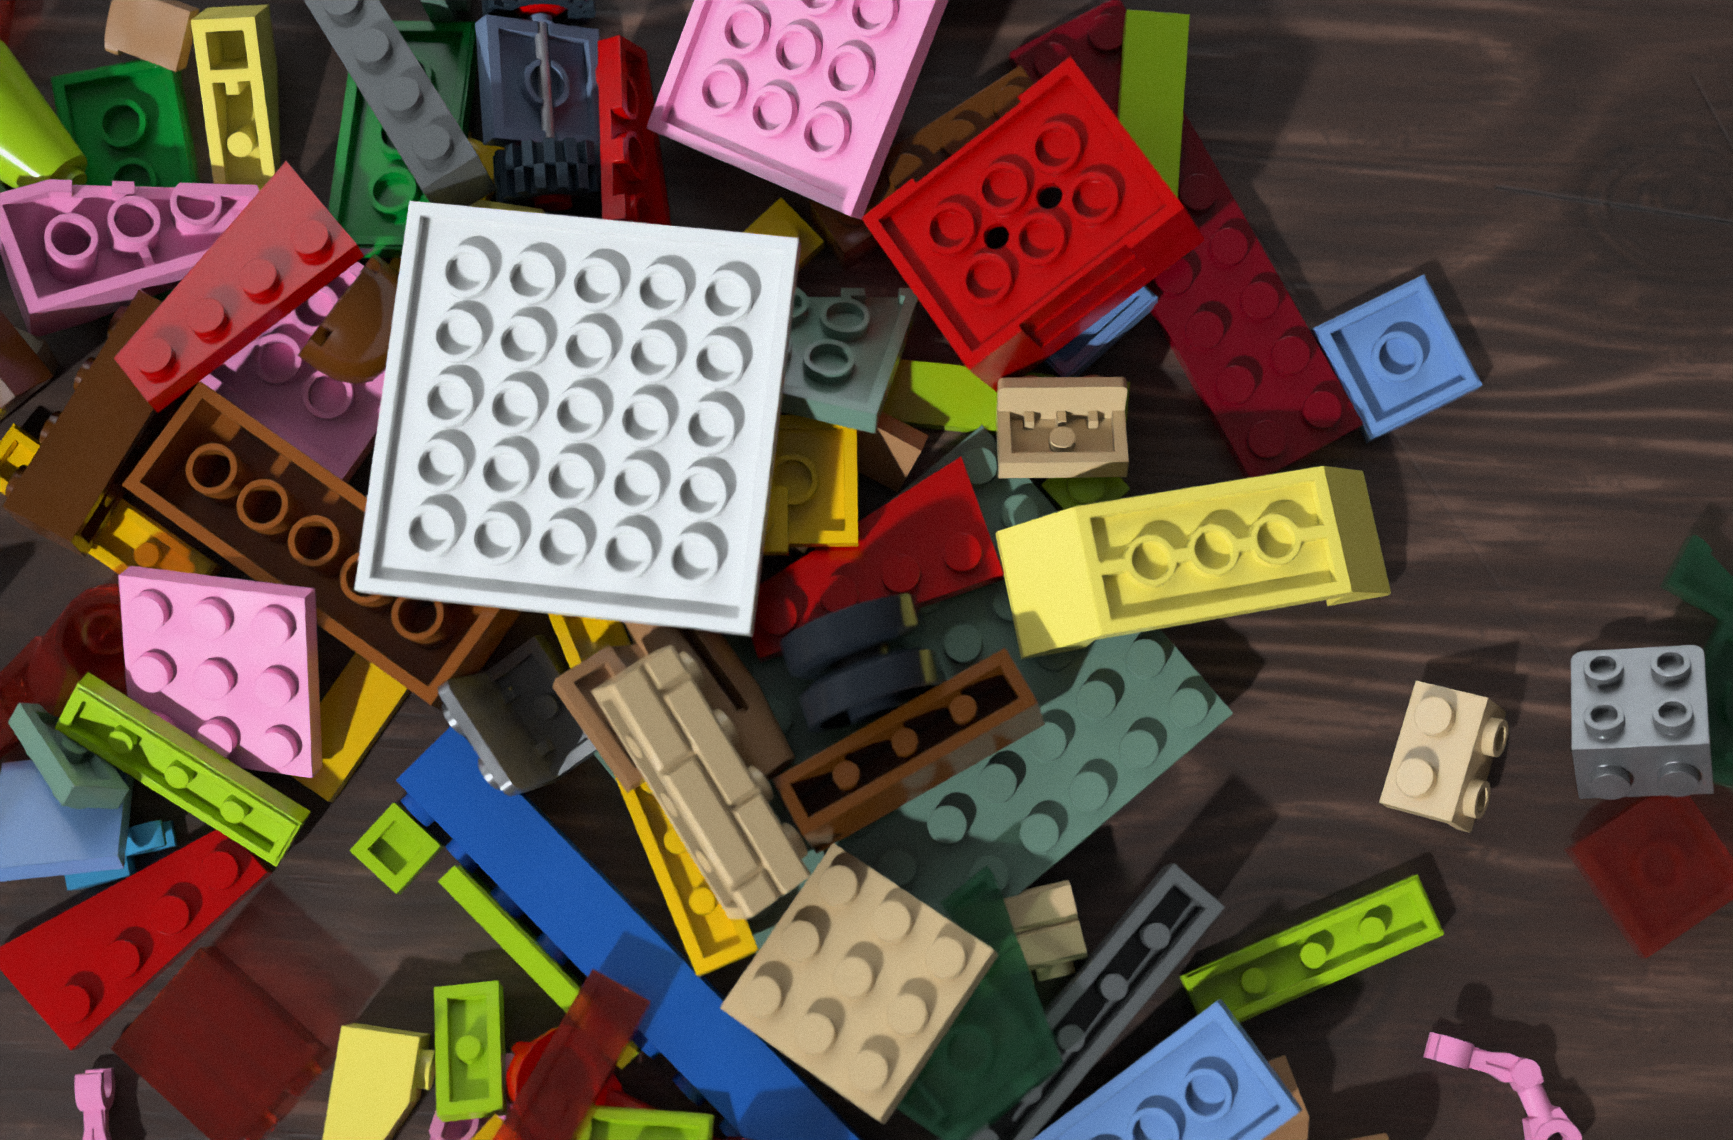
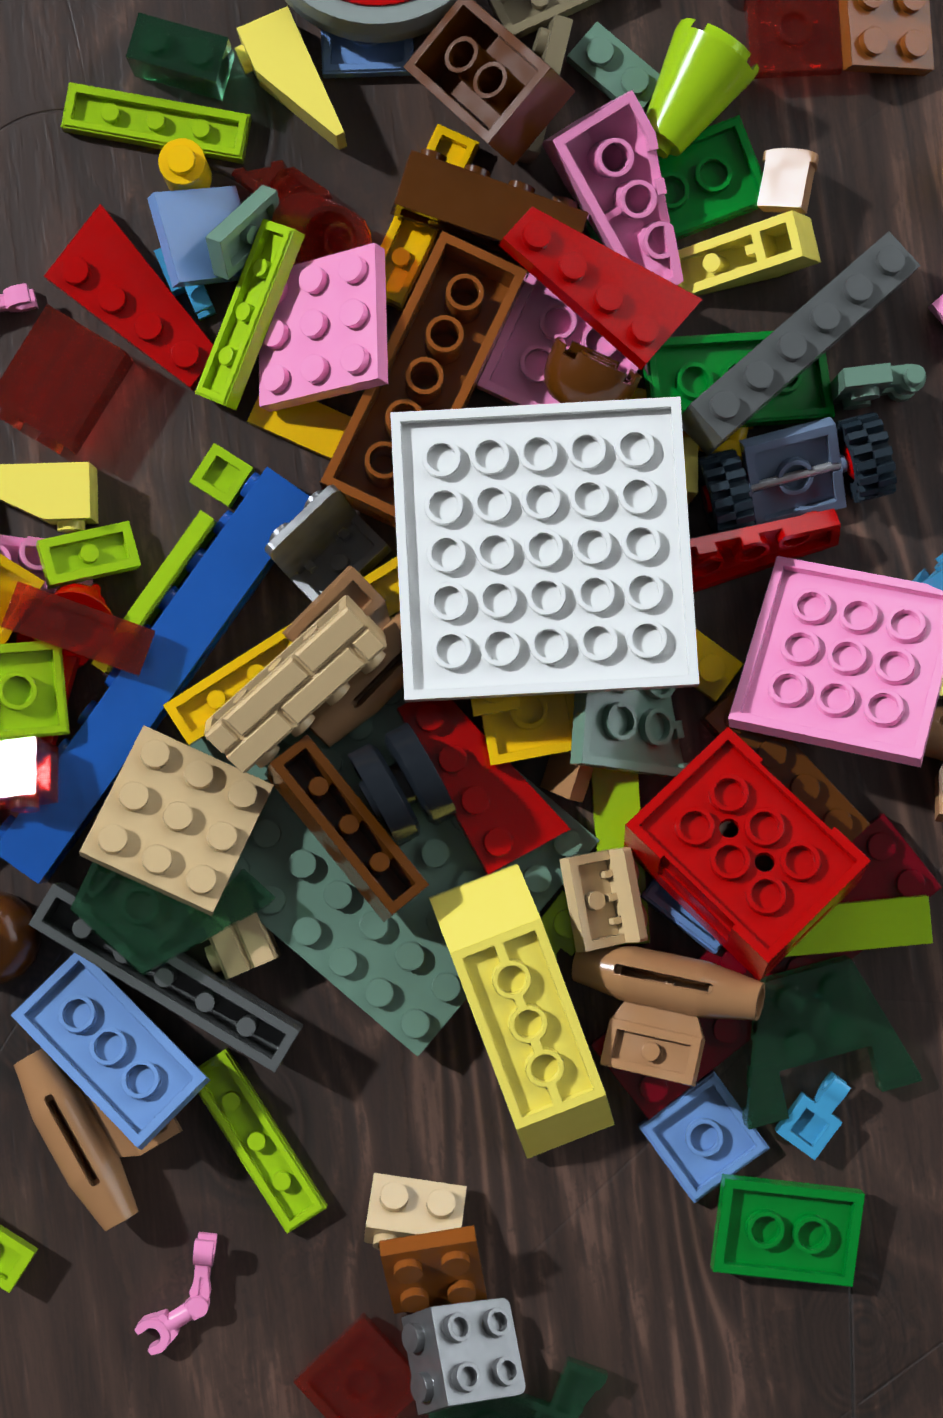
camera: 75 degrees right, 5 degrees up
(1213, 374) = (663, 998): none -> medium nougat plate
(1262, 191) = (813, 1017): none -> clear green wing
(1397, 214) = (812, 1120): none -> dark azure plate
(1521, 740) = (433, 1269): none -> dark orange plate
(1535, 269) = (787, 1230): none -> green plate

